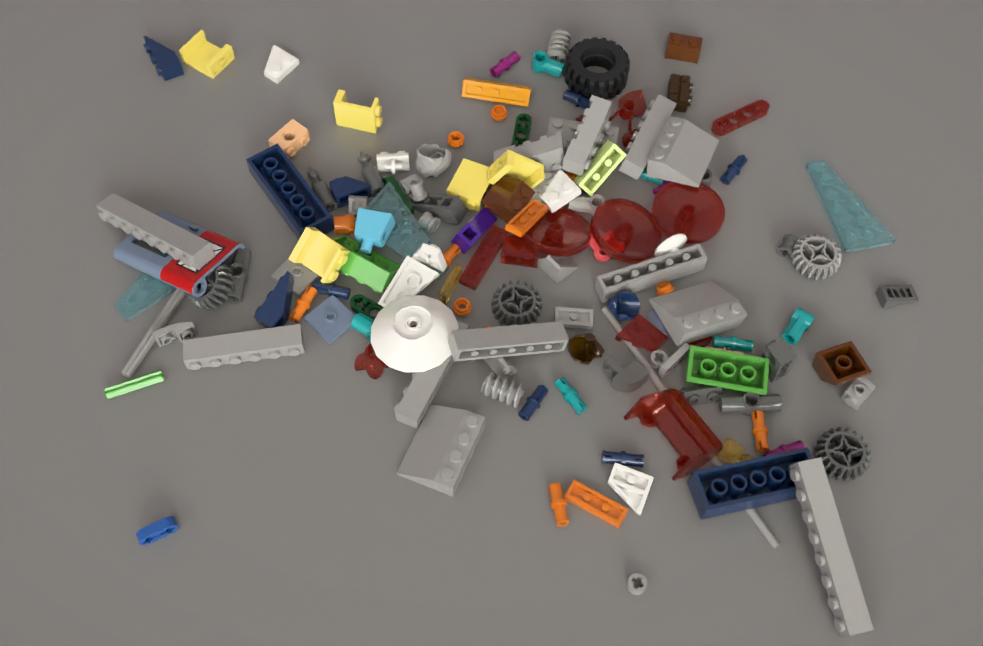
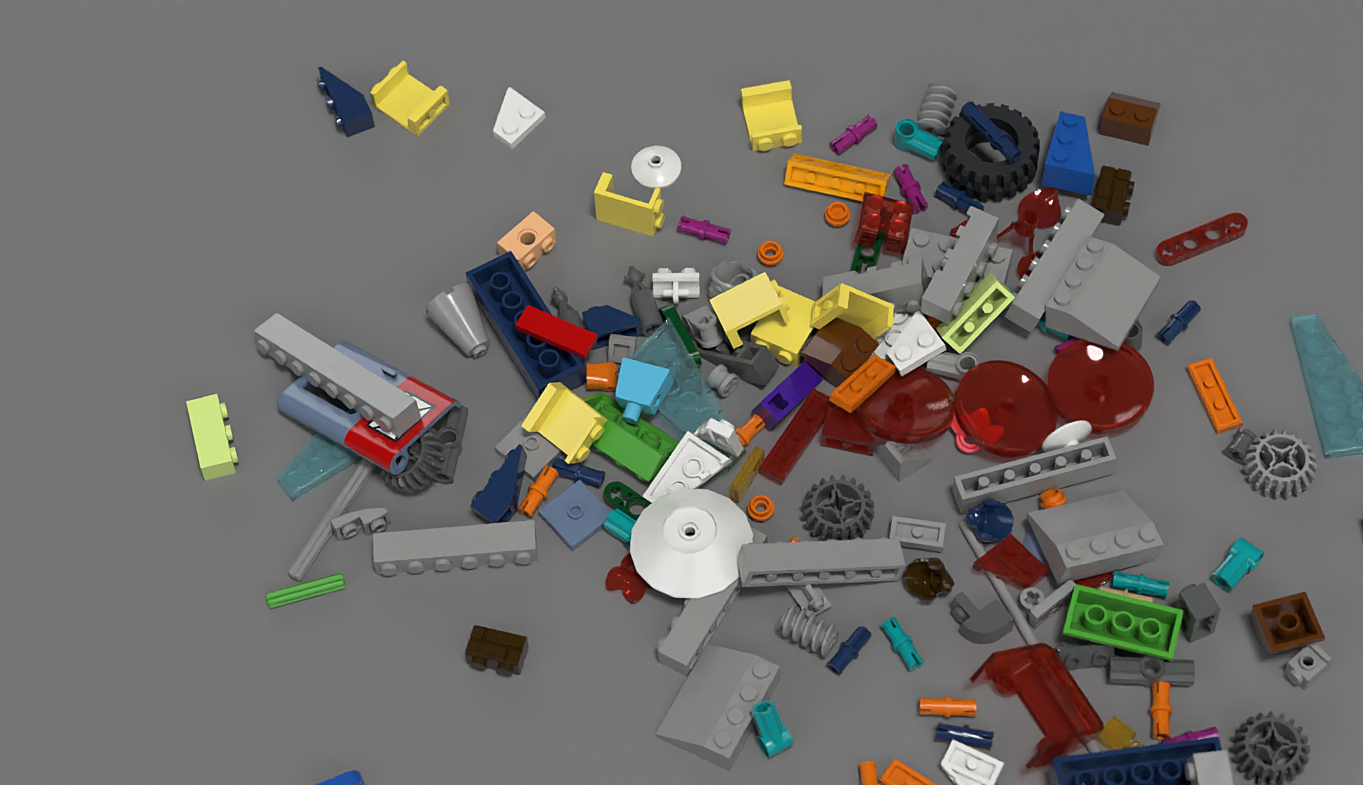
camera: 10 degrees right, 0 degrees up
(66, 280) = (212, 436): none -> yellowish green brick
(243, 190) = (460, 319): none -> light grey cone
(276, 419) = (496, 650): none -> dark brown brick
(311, 194) = (556, 332): none -> red tile
(373, 88) = (656, 175): none -> white dish
(409, 127) = (704, 230): none -> magenta pin
(443, 169) = (748, 304): none -> light yellow panel
(449, 54) = (770, 116): none -> light yellow panel
(483, 466) = (772, 732): none -> teal piece
(528, 109) = (885, 216): none -> clear red piece
(546, 95) = (911, 188): none -> magenta pin
(602, 57) = (997, 138): none -> dark blue pin
(608, 438) = (947, 706): none -> orange pin
(650, 70) = (1069, 157): none -> blue wedge
(763, 215) = (1214, 396): none -> orange tile

